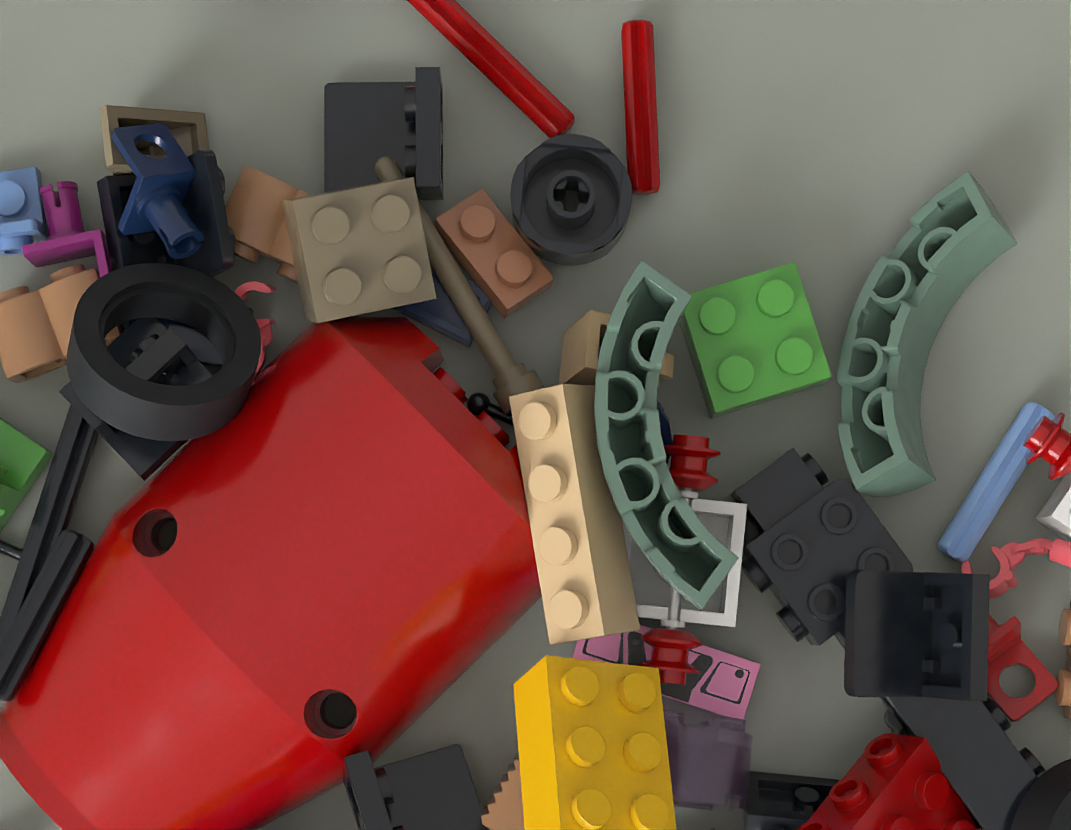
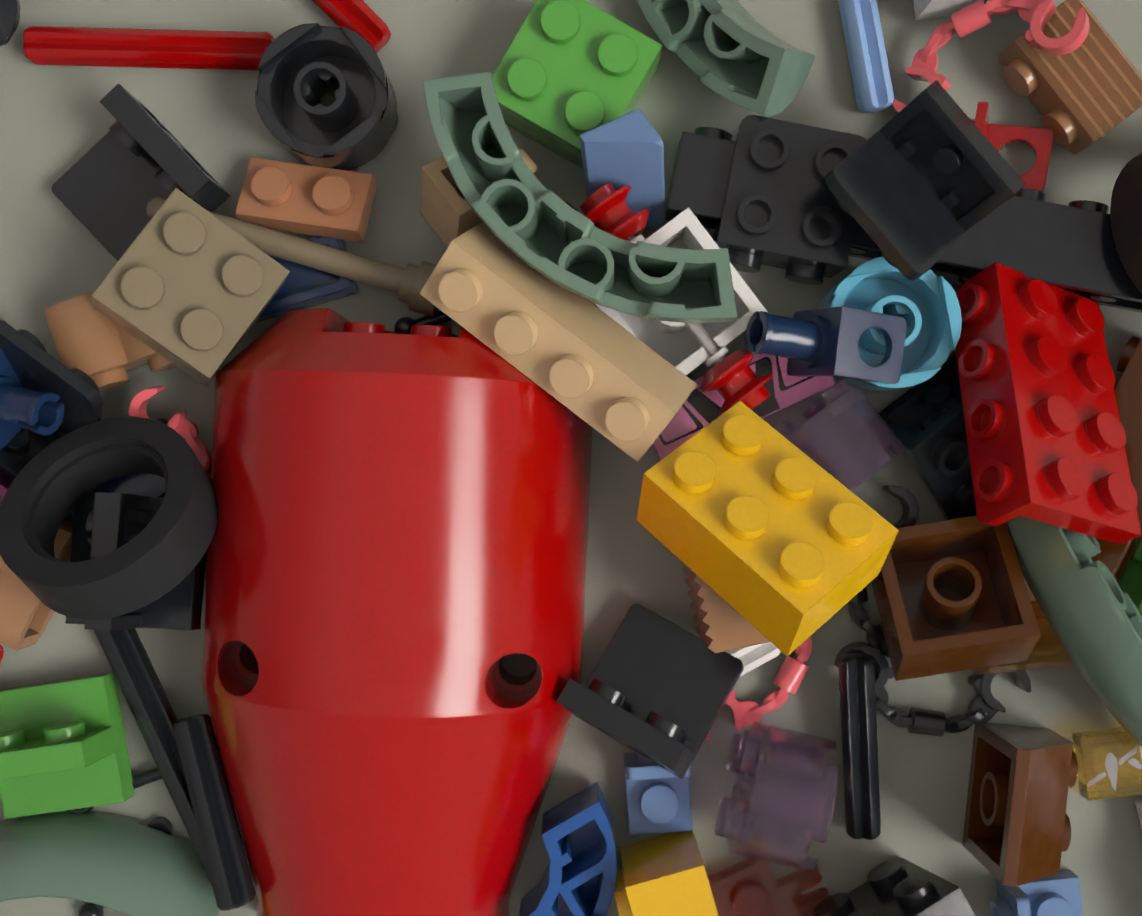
camera: 45 degrees left, 5 degrees up
(736, 430) = (627, 154): none -> medium blue slope
(754, 683) = (827, 342): none -> dark blue bracket
(777, 721) = (925, 304): none -> medium azure brick

